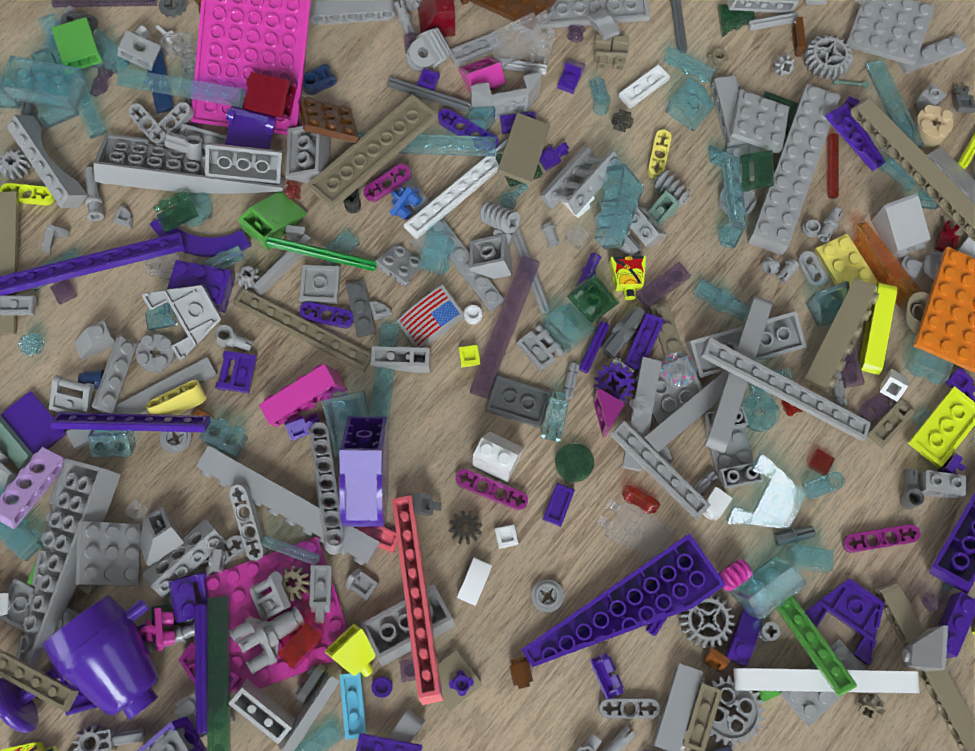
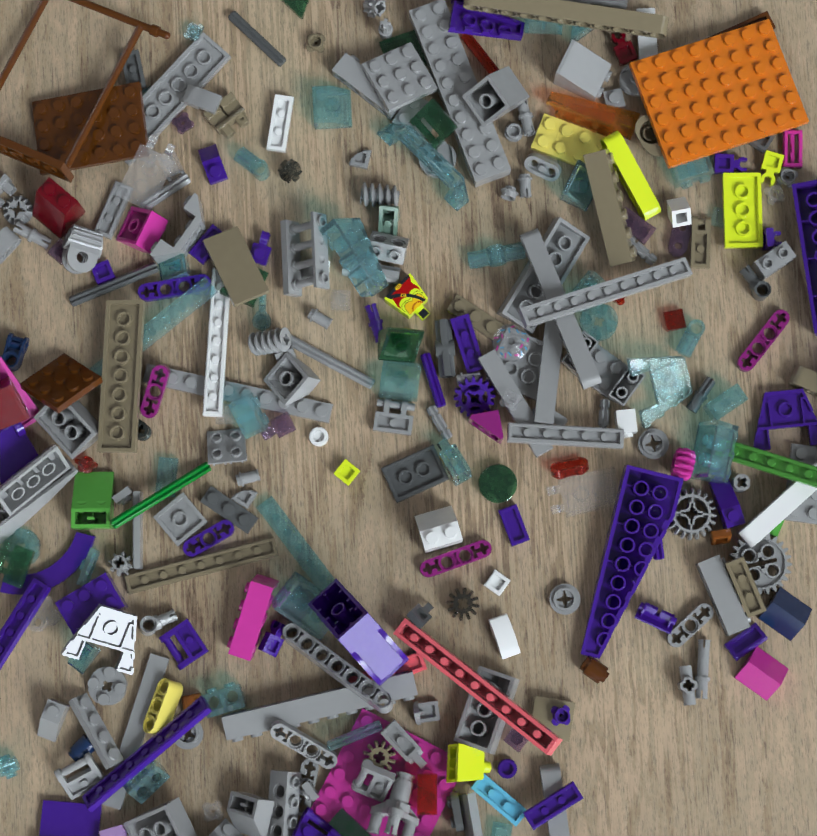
camera: 35 degrees left, 10 degrees up
(394, 297) = (247, 477): none -> light grey pin
(402, 200) = (185, 386): blue hips -> none
(402, 358) = (300, 522): light grey slope -> none
(430, 318) = (290, 470): slope -> none
(453, 282) = (281, 425): none -> clear purple plate
(504, 327) = (353, 425): clear purple tile -> none
(657, 147) = (354, 181): light yellow beam -> none
(663, 285) = (441, 283): clear purple plate -> none
(680, 157) = (361, 159): none -> light grey tile
(689, 65) = (300, 72): clear light blue plate -> none
(732, 538) = (658, 436): none -> light grey gear
(778, 83) = (385, 29): none -> light grey axle
(822, 186) = (495, 96): none -> light grey slope

